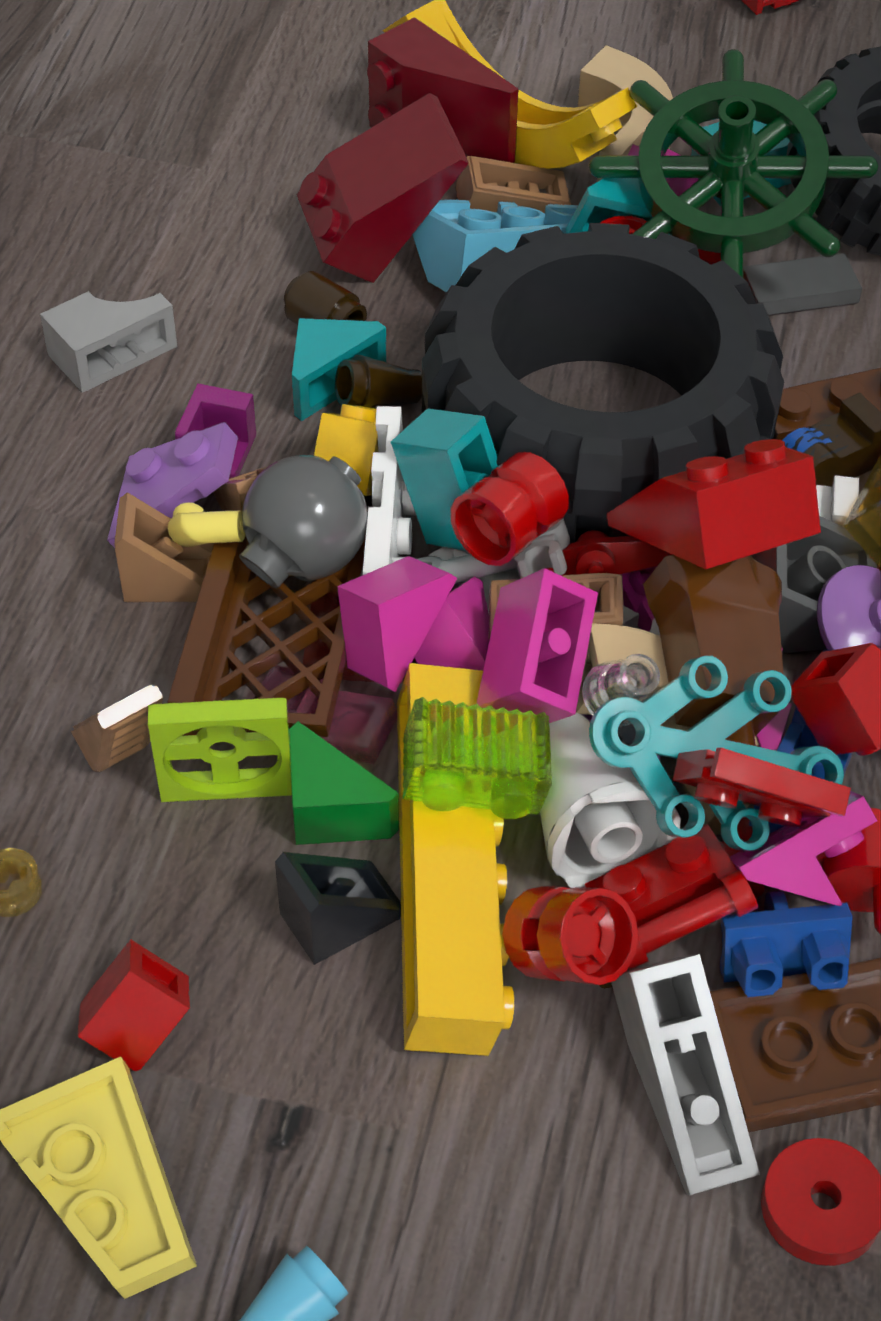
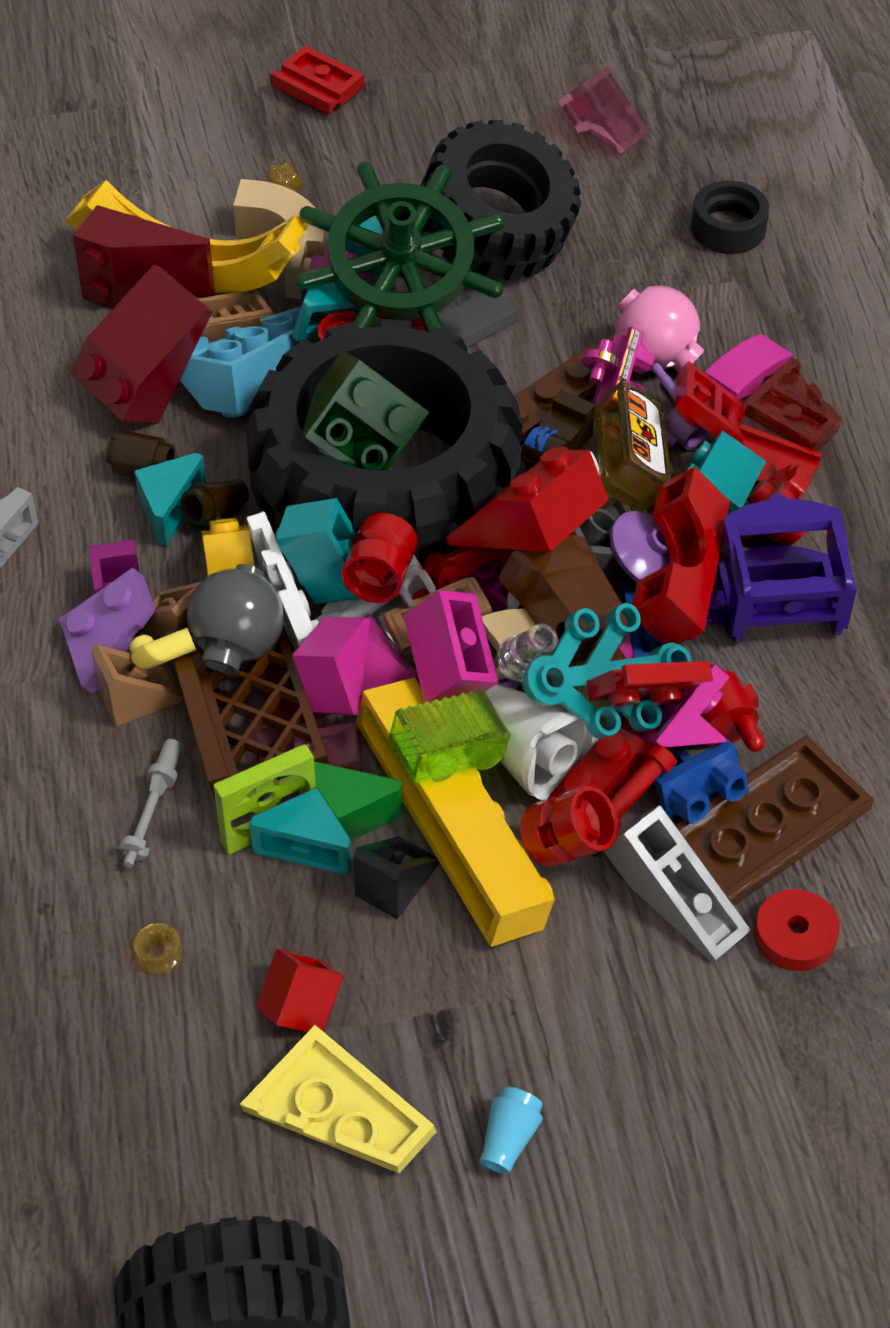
camera: 25 degrees left, 0 degrees up
(117, 730) = (180, 811): medium nougat slope -> none
(132, 677) = (161, 777): none -> light grey piece
(246, 805) = (303, 833): none -> teal slope
(567, 332) = (361, 416): none -> dark green slope
(663, 61) = (284, 176): none -> clear yellow plate

